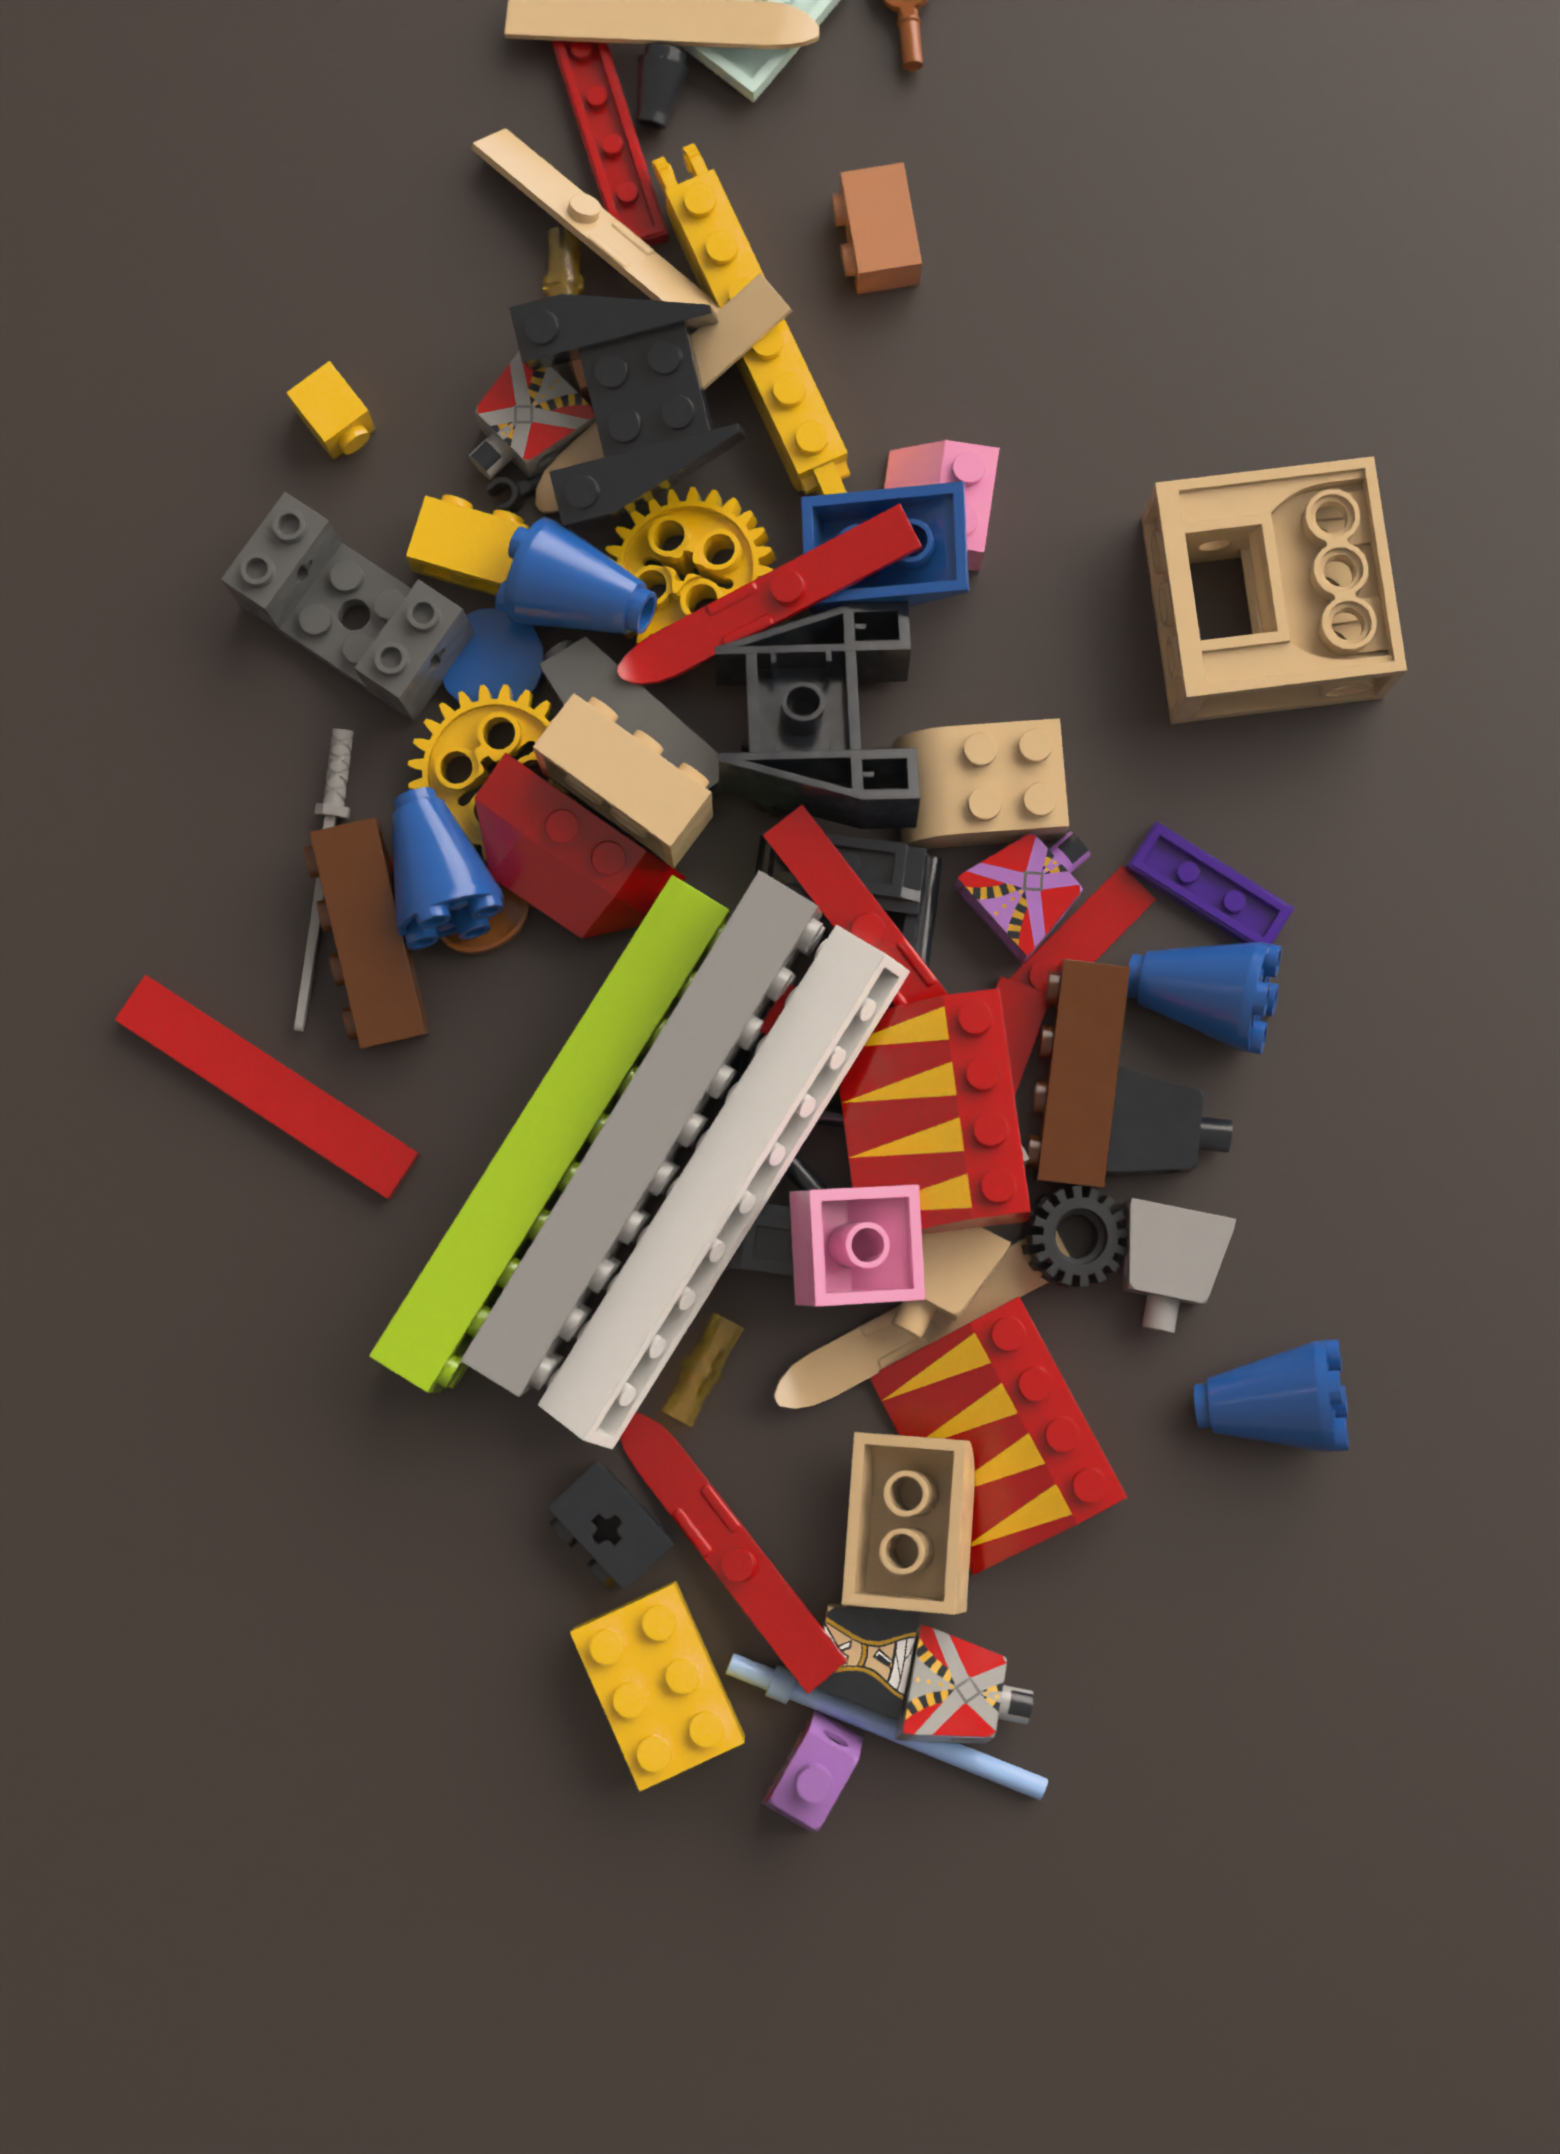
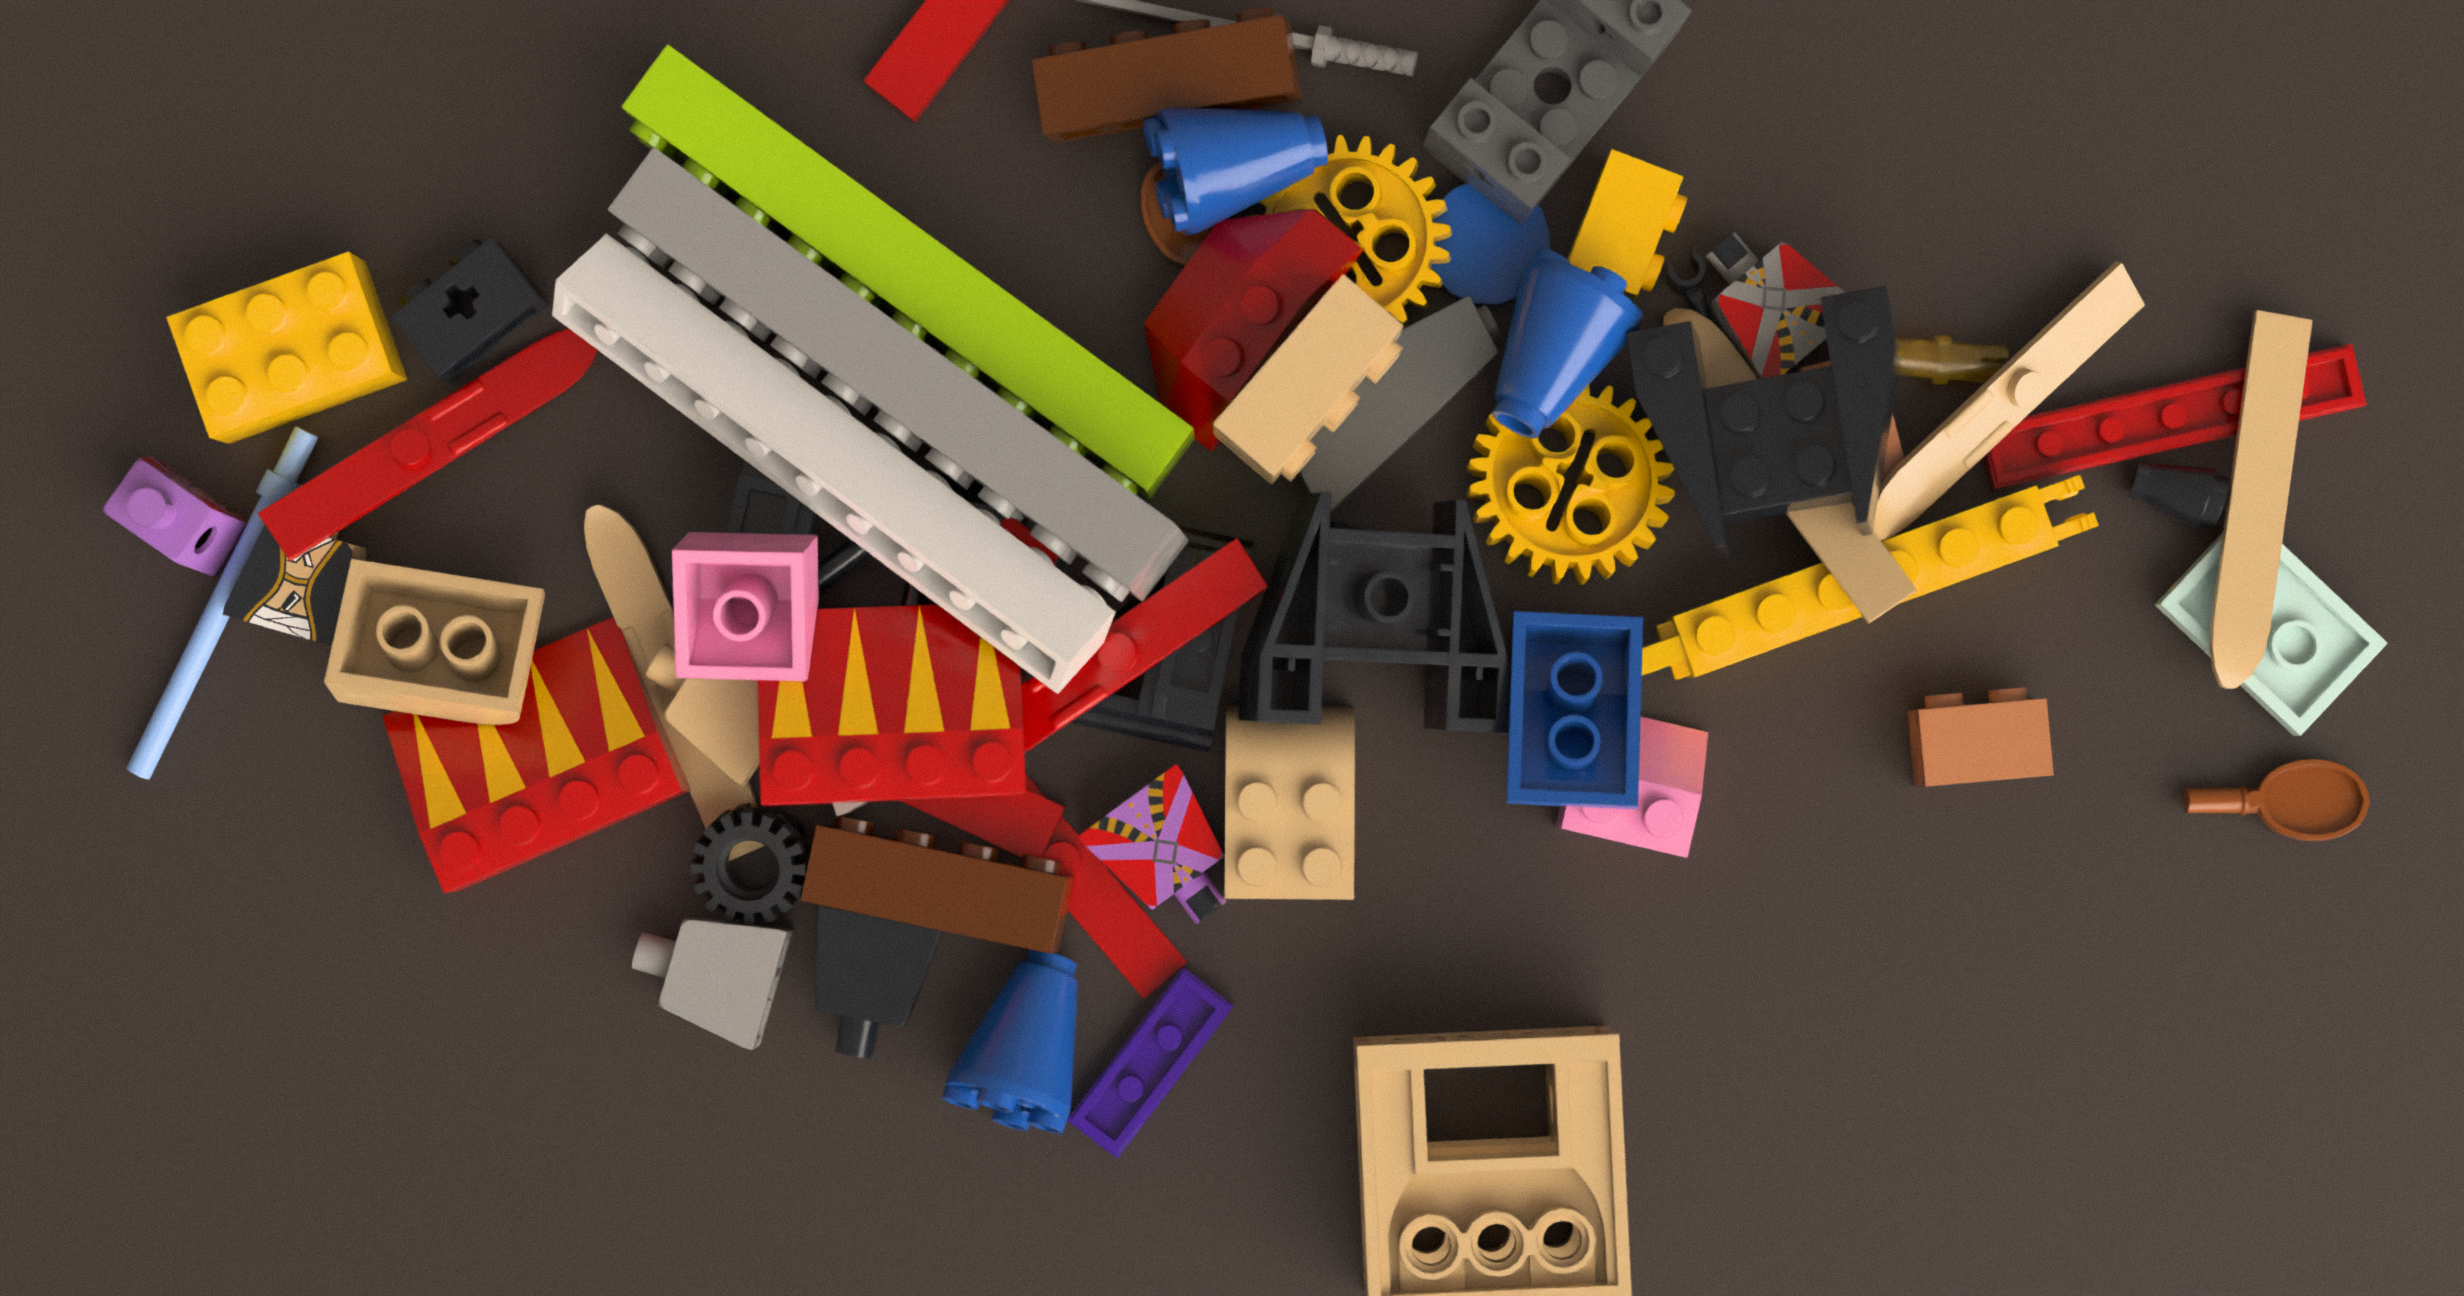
camera: 95 degrees right, 5 degrees up
(332, 411) = (1800, 75): yellow brick -> none
(702, 1369) = (638, 426): clear yellow pin -> none
(772, 598) = (1521, 572): red piece -> none
(957, 1692) = (248, 683): torso -> none
(1281, 1399) = (543, 1082): blue cone -> none

